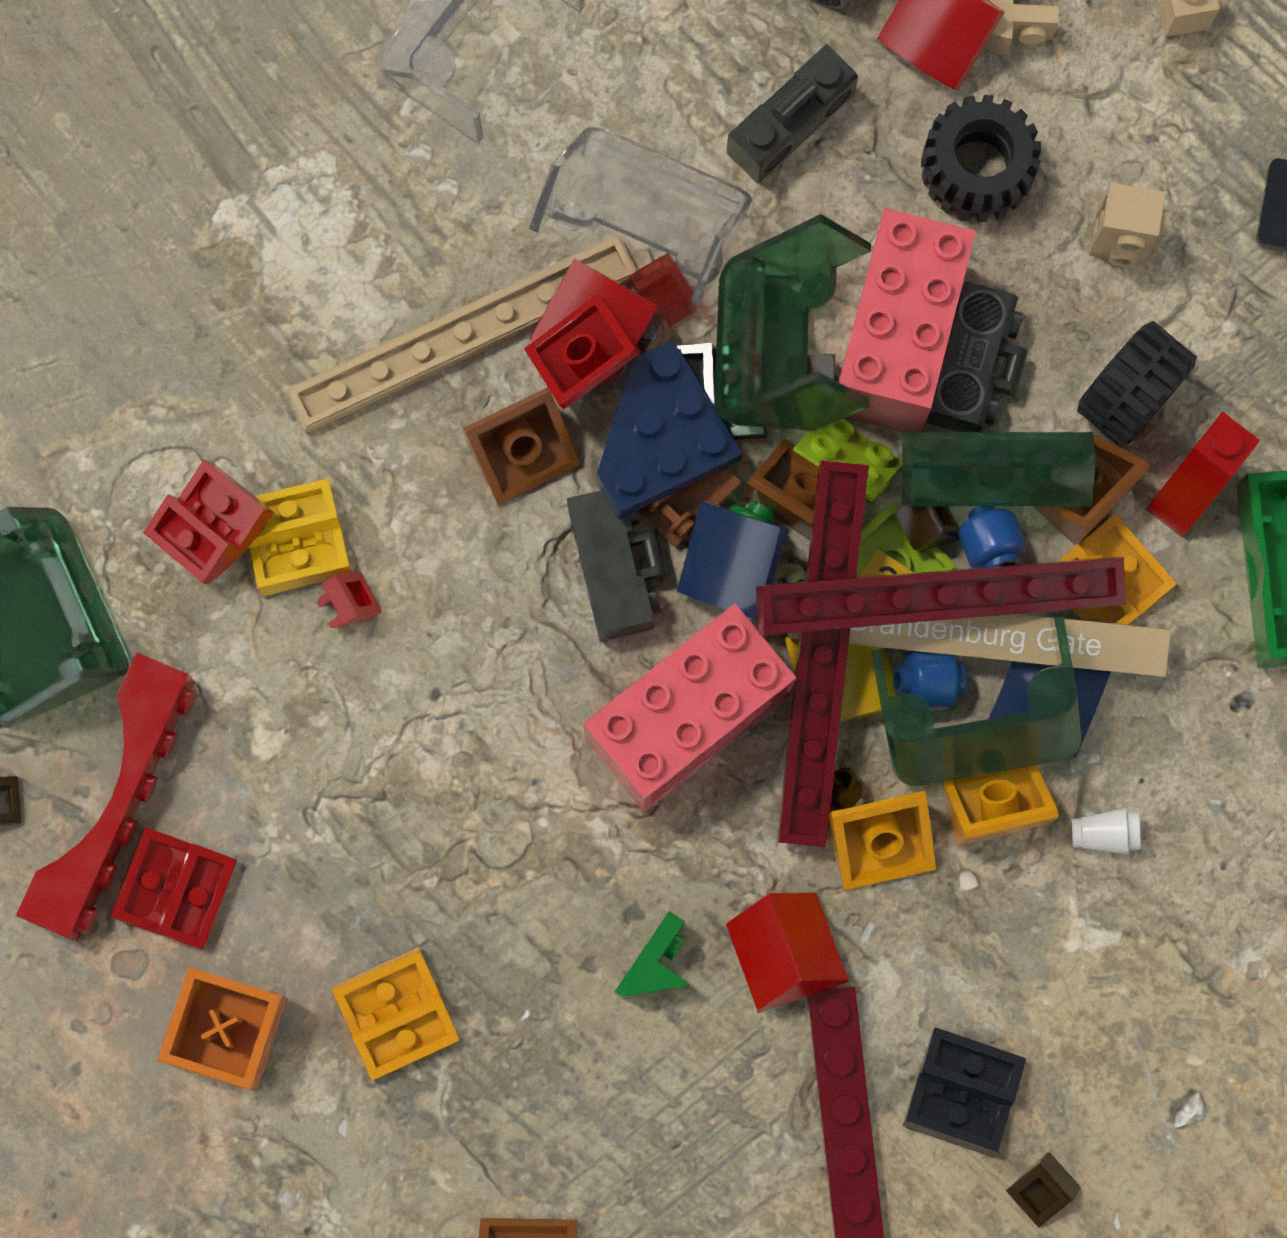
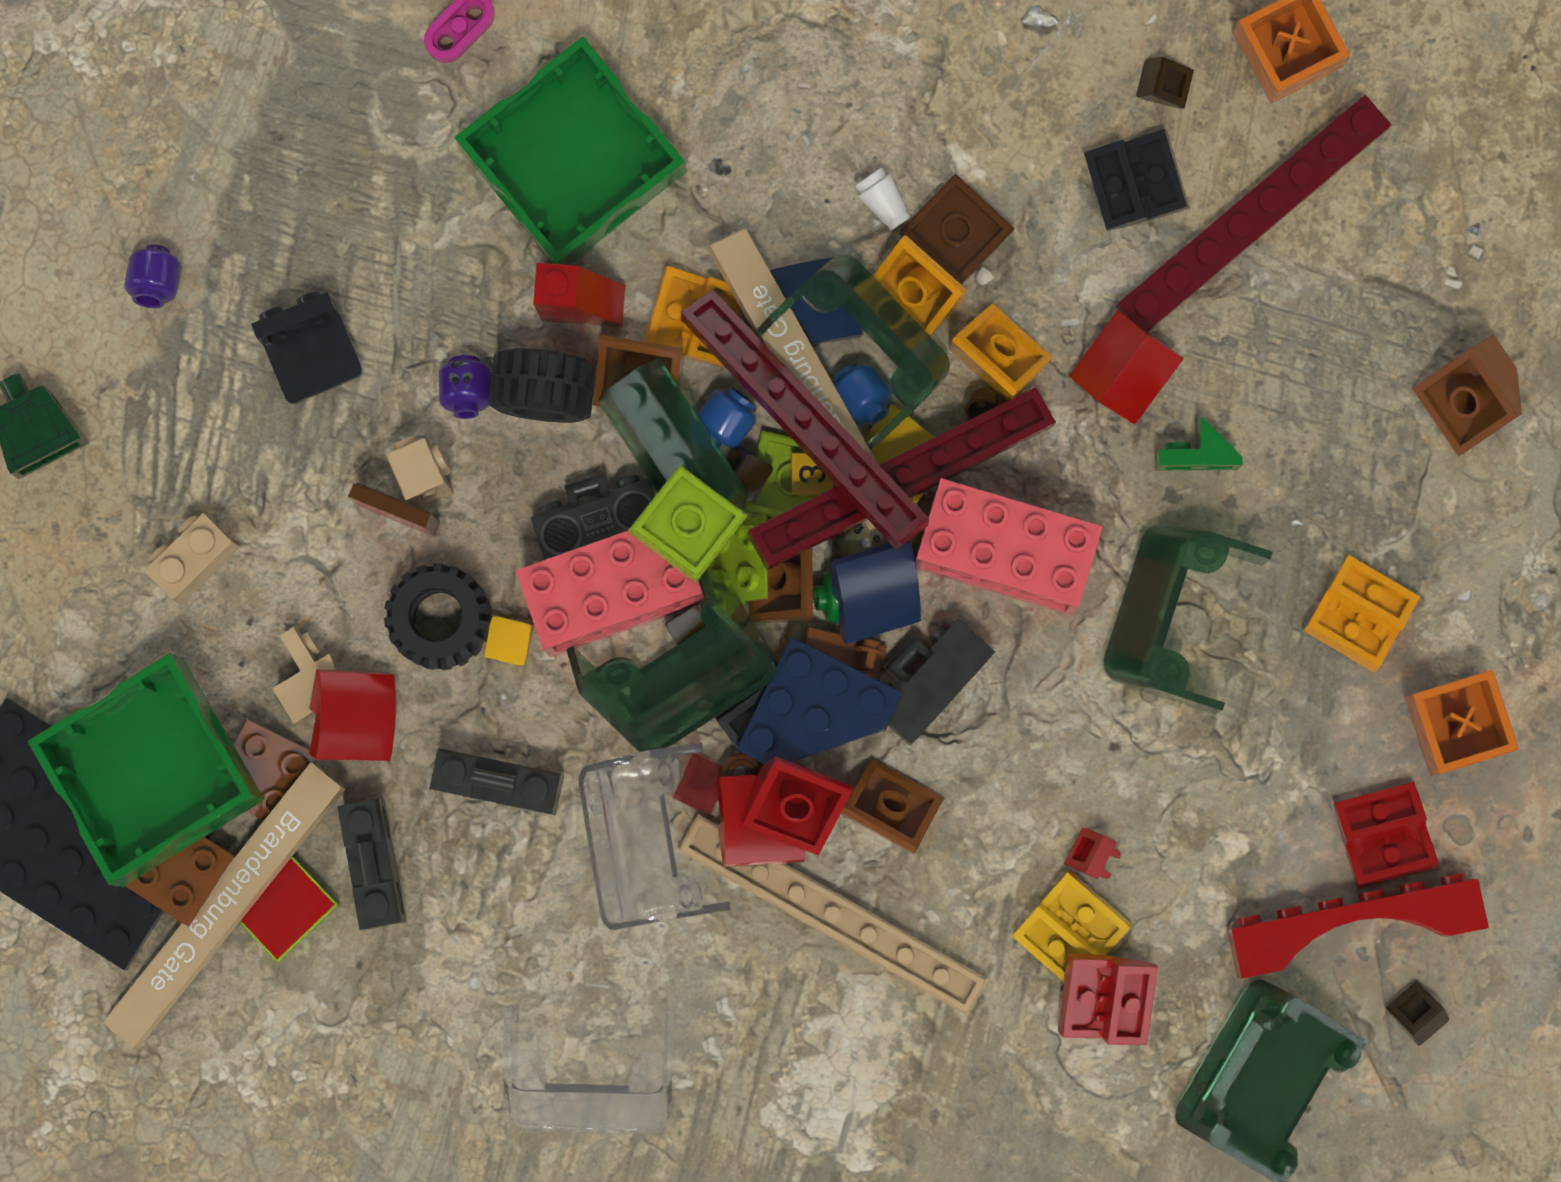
camera: 115 degrees left, 5 degrees up
(578, 857) = (1147, 607): none -> clear green windscreen
(913, 412) = (687, 523): none -> lime tile
(921, 203) = (508, 641): none -> yellow slope
(1029, 882) = (958, 229): none -> reddish brown tile
(1123, 168) = (394, 509): none -> reddish brown tile
(1186, 319) = (464, 386): none -> dark purple head

